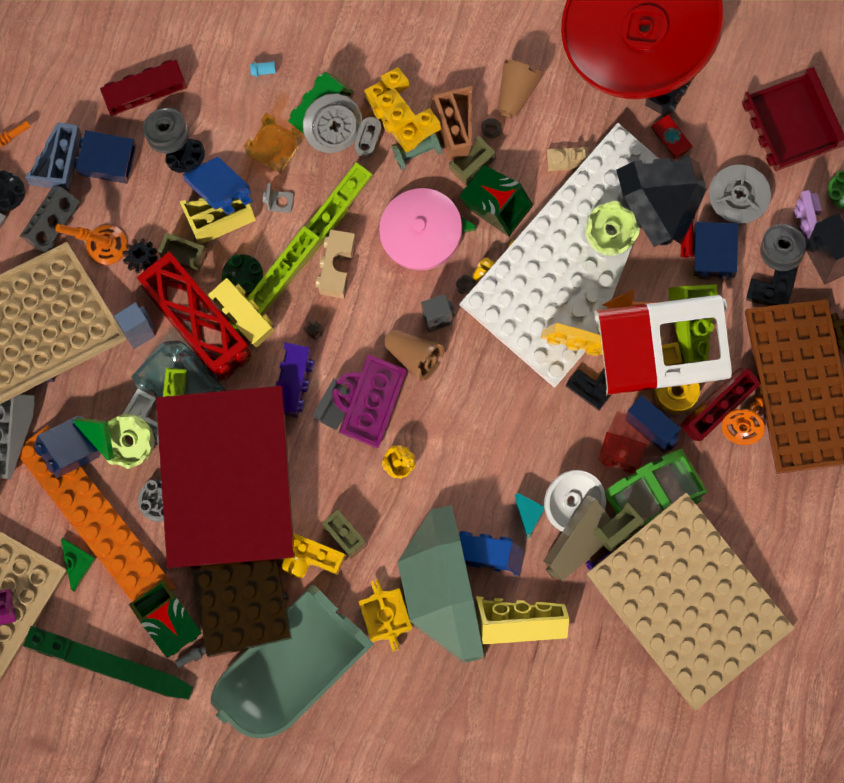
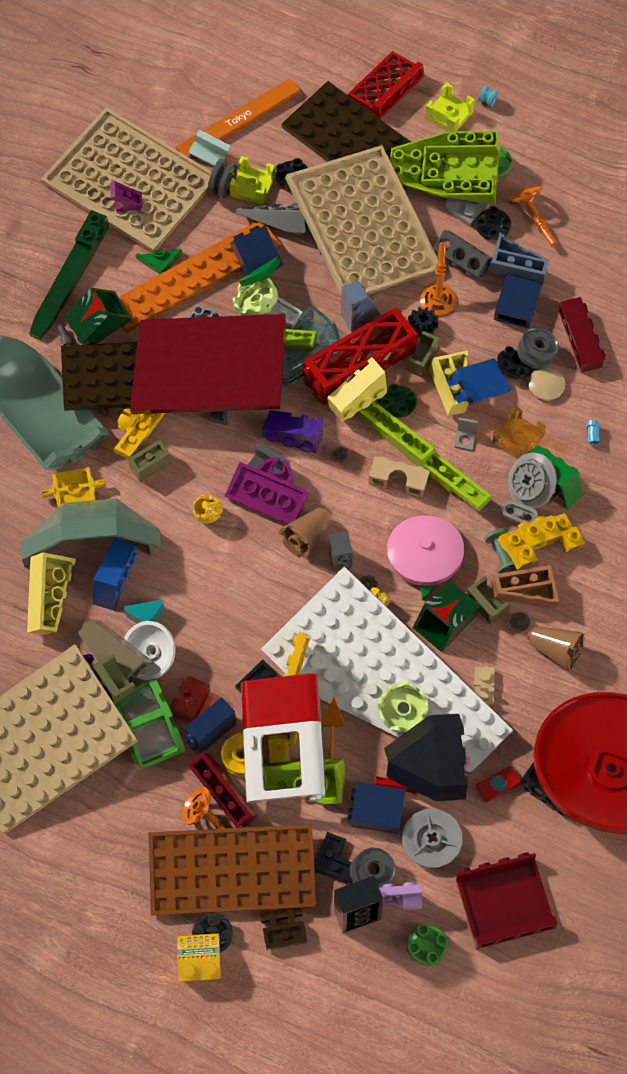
camera: 90 degrees right, 10 degrees down
(206, 120) = (547, 384): none -> tan dish

